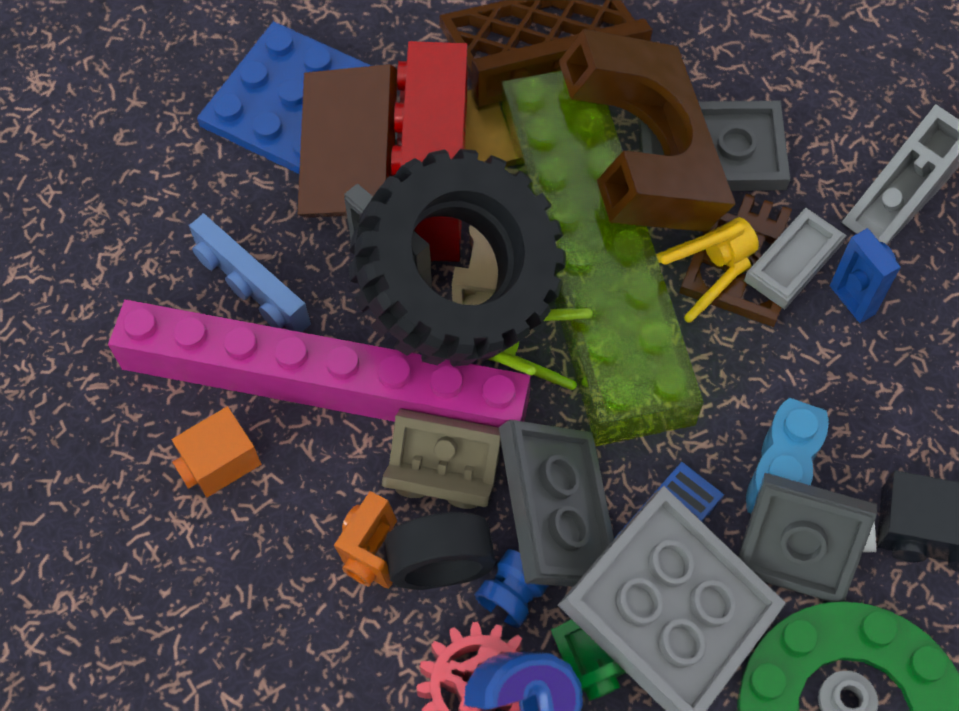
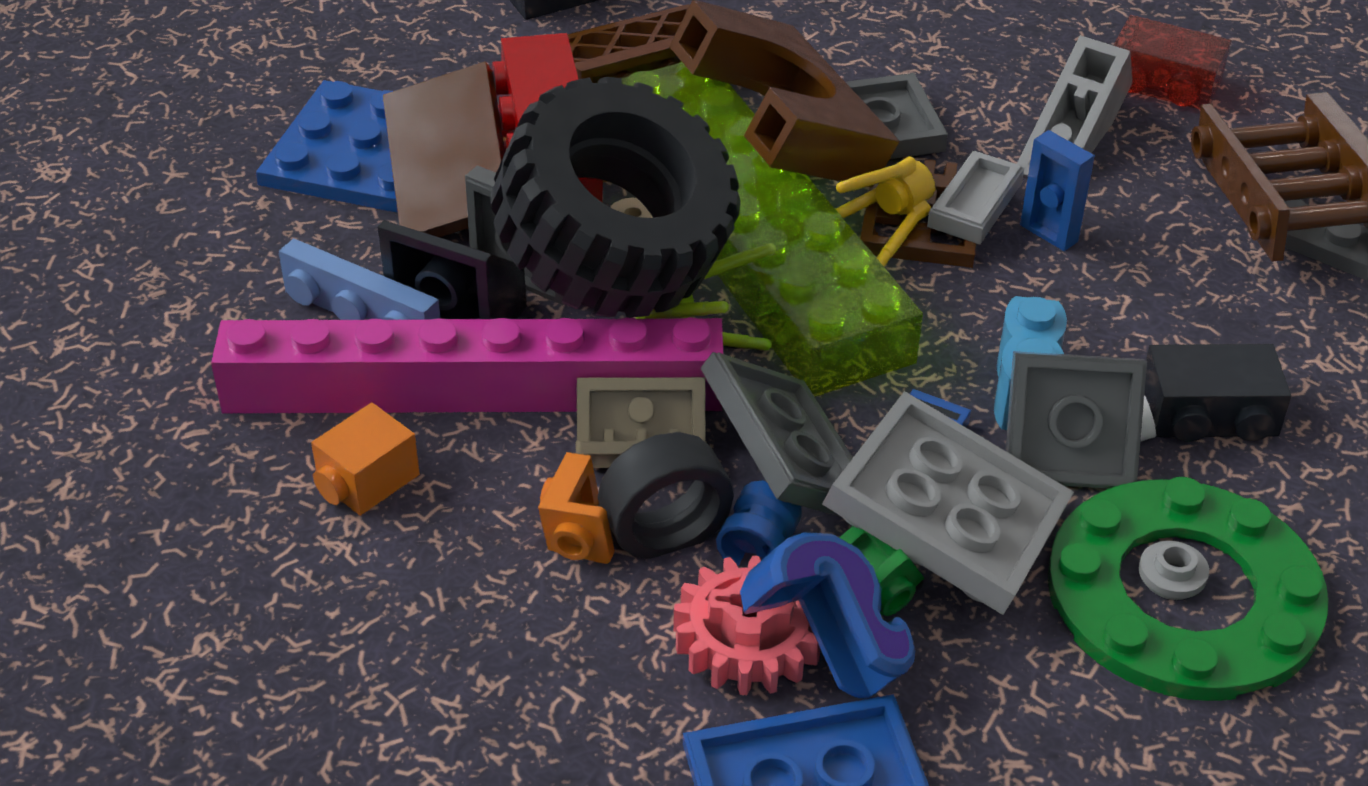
camera: 15 degrees left, 20 degrees down
(319, 275) = (460, 277): none -> black slope

